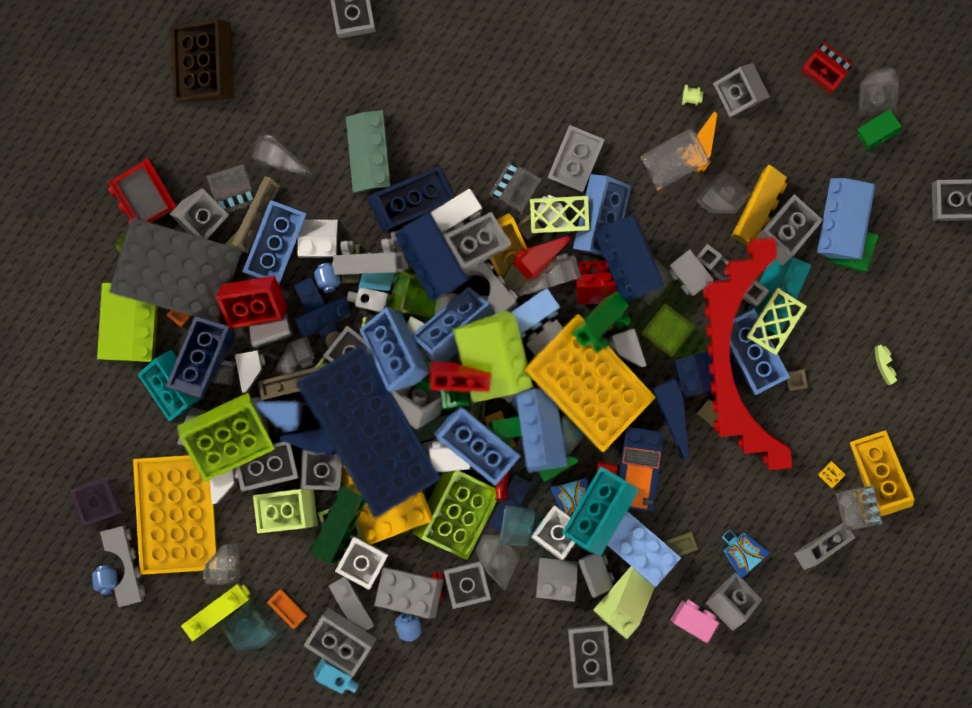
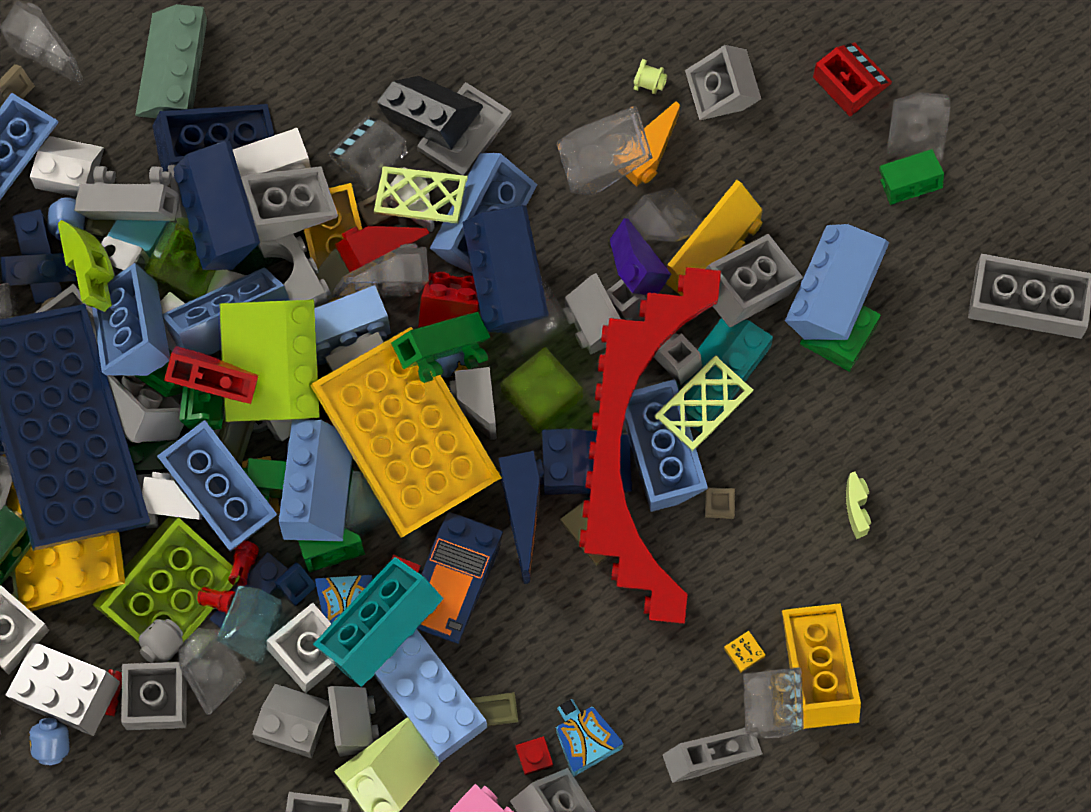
camera: 15 degrees right, 15 degrees down
(351, 305) = (91, 264): none -> lime slope
(463, 549) = (160, 641): none -> light grey head
(492, 514) = (215, 598): none -> red pin
(537, 492) = (295, 584): none -> dark blue plate
(551, 150) = (429, 110): none -> black slope
(711, 231) = (636, 261): none -> dark purple slope
(713, 569) = (534, 755): none -> red plate

